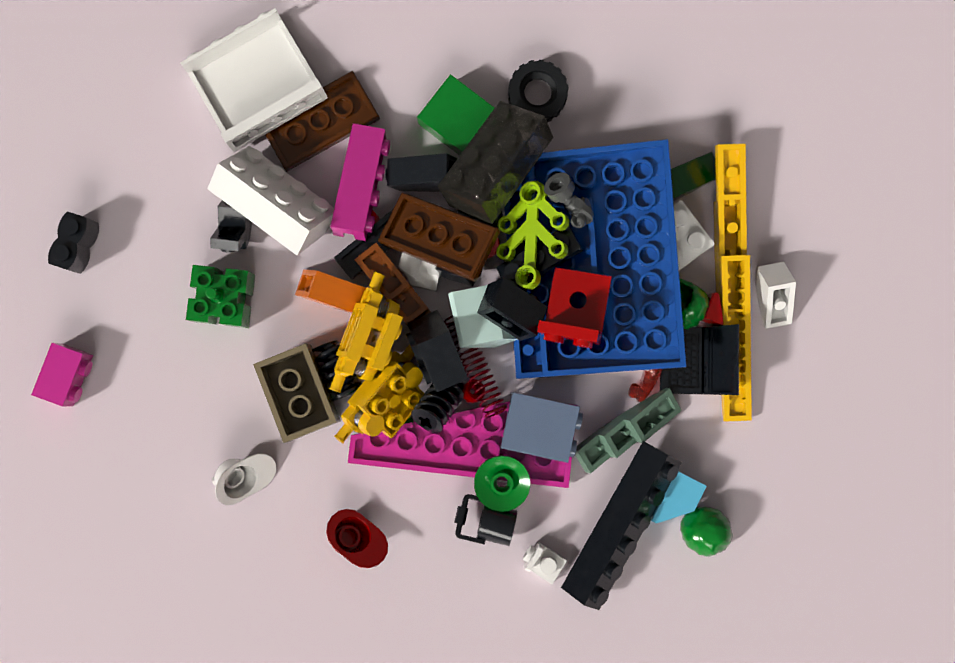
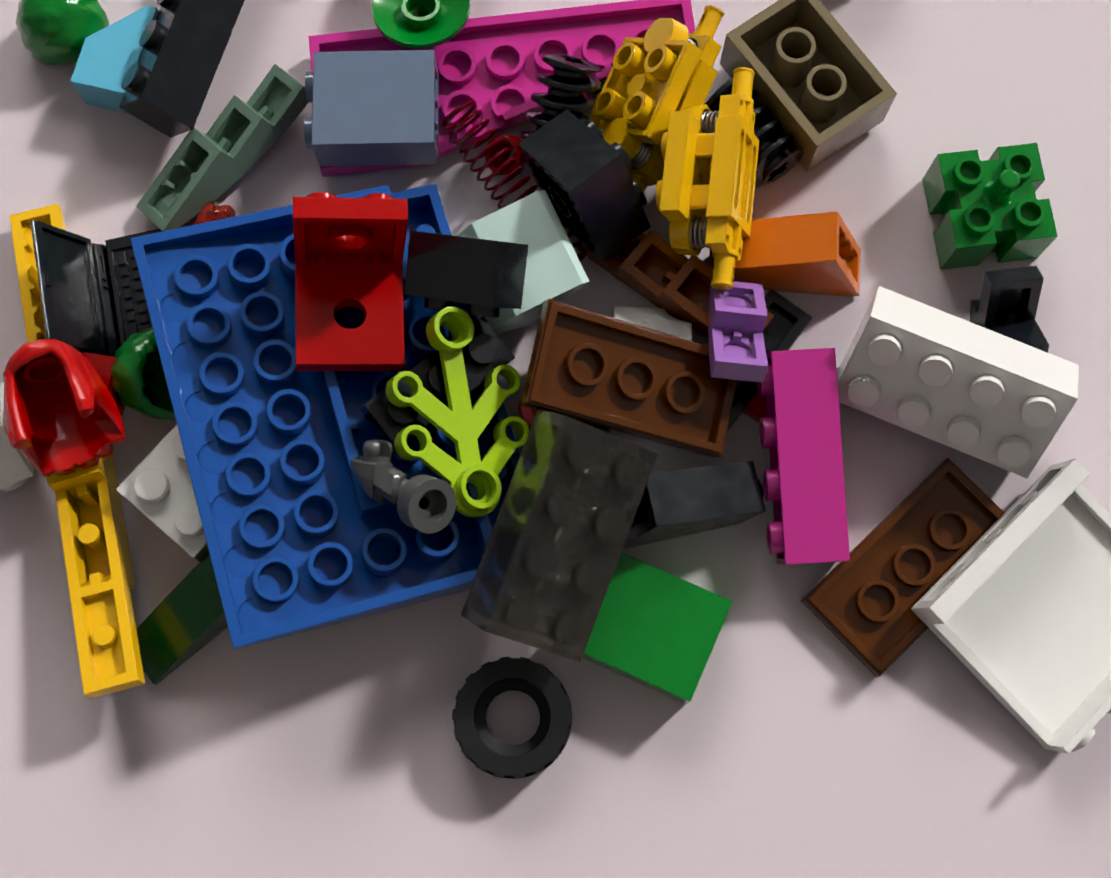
camera: 170 degrees right, 10 degrees down
(377, 249) = (737, 332): none -> medium lavender slope
(737, 288) = (58, 408): none -> red hair

